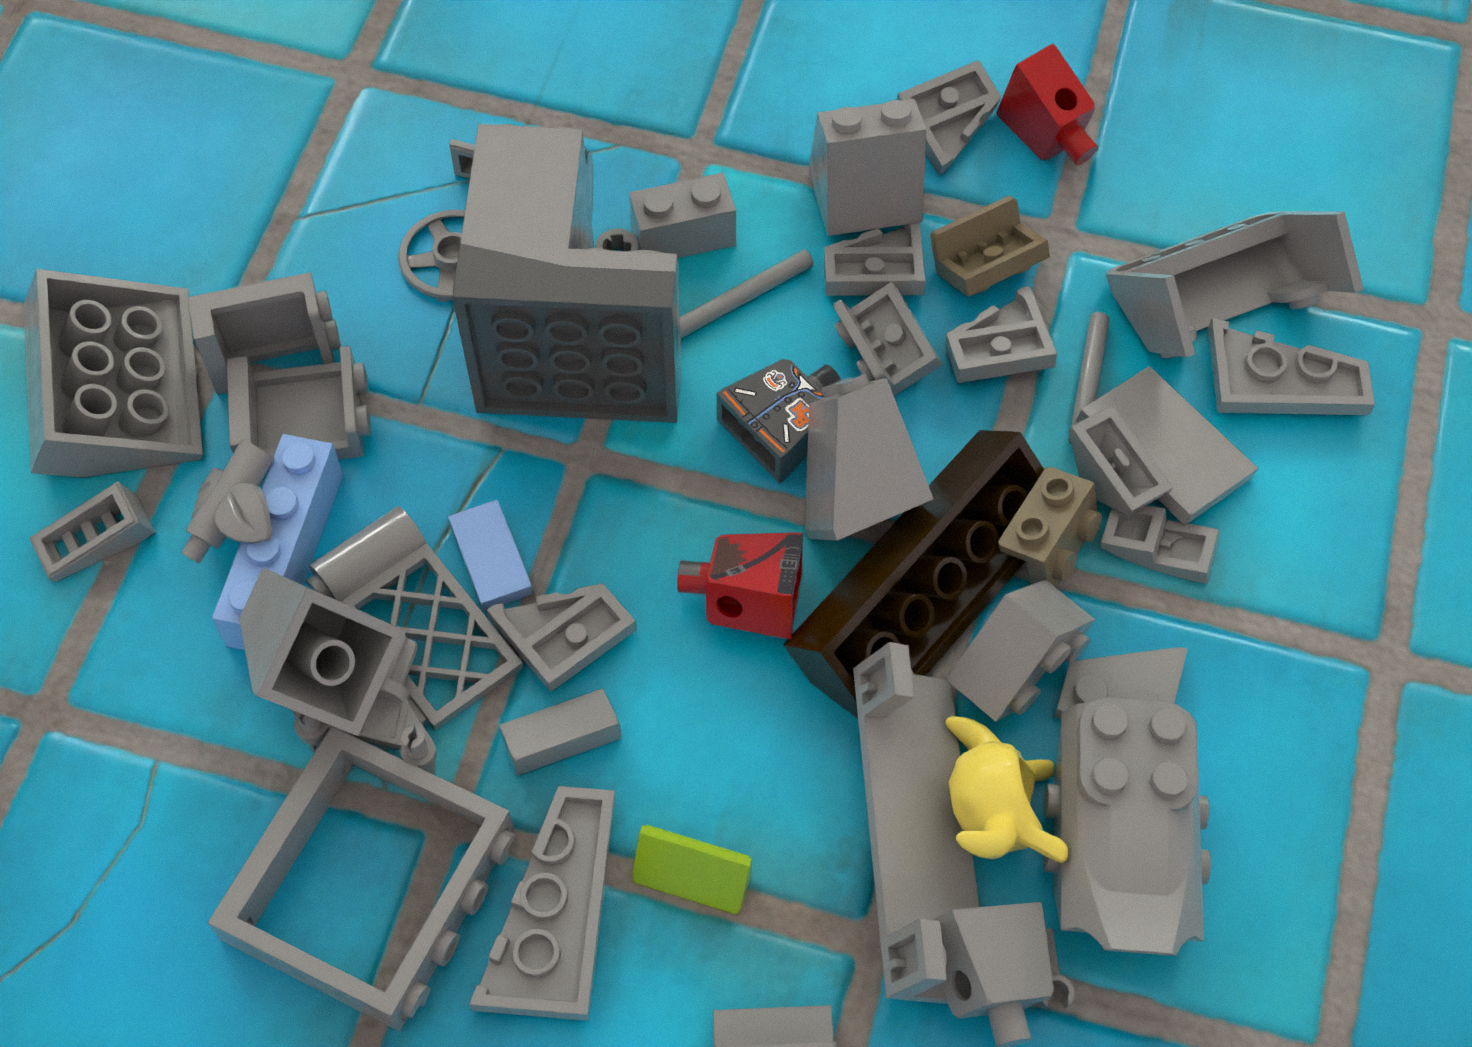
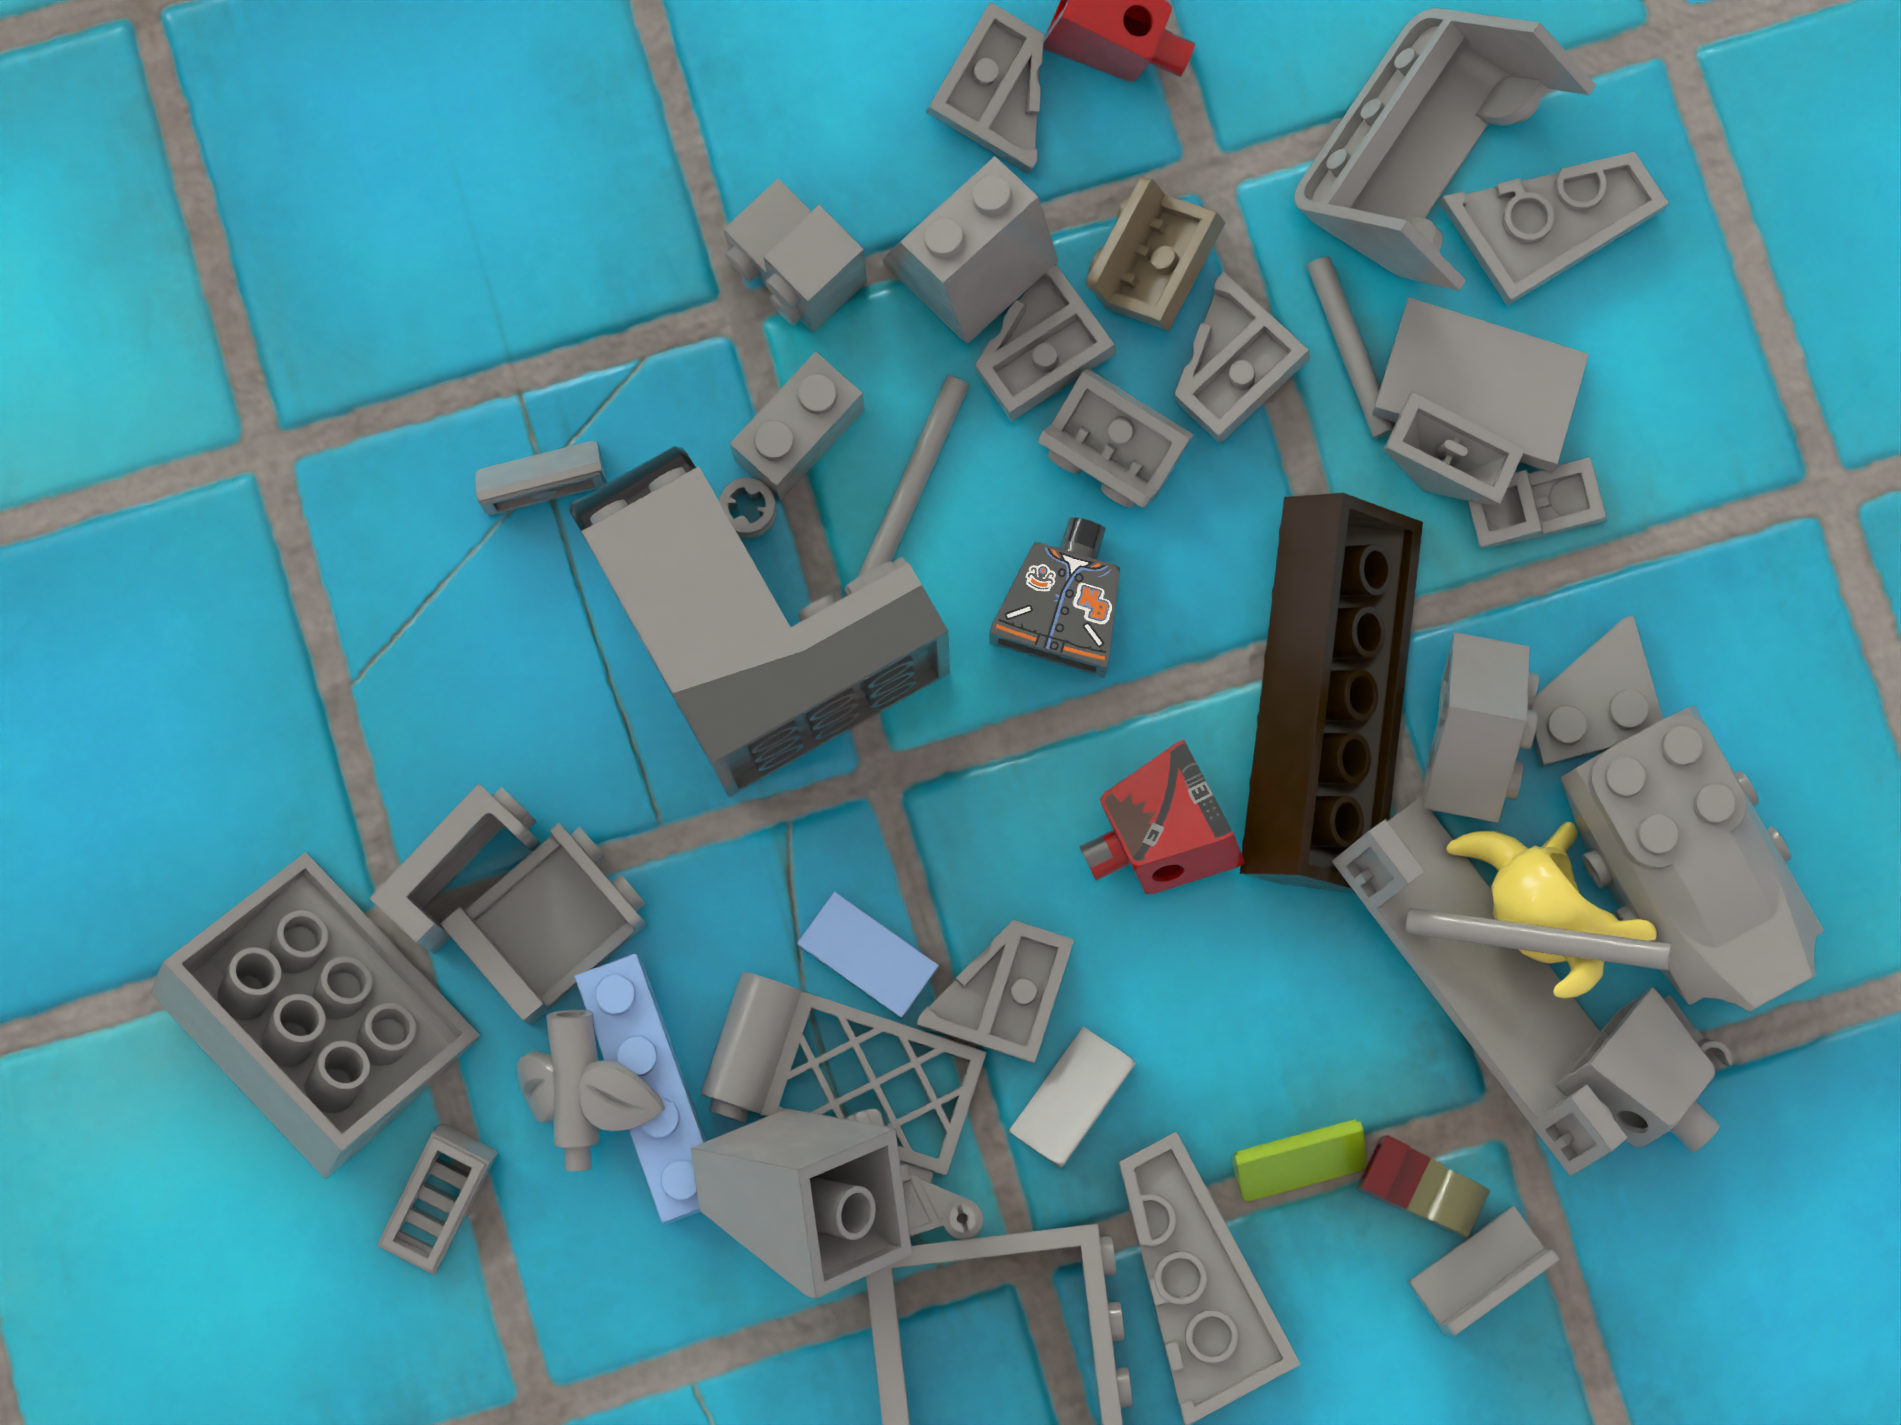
camera: 30 degrees left, 20 degrees up
(444, 255) = (561, 623): light grey wheel -> none
(755, 130) = (797, 254): none -> light grey brick
(768, 944) = (1422, 1187): none -> leg
(858, 460) = (1198, 635): light grey slope -> none
(973, 797) = (1539, 939): none -> light grey bar
(1053, 526) = (1423, 567): dark tan bracket -> none

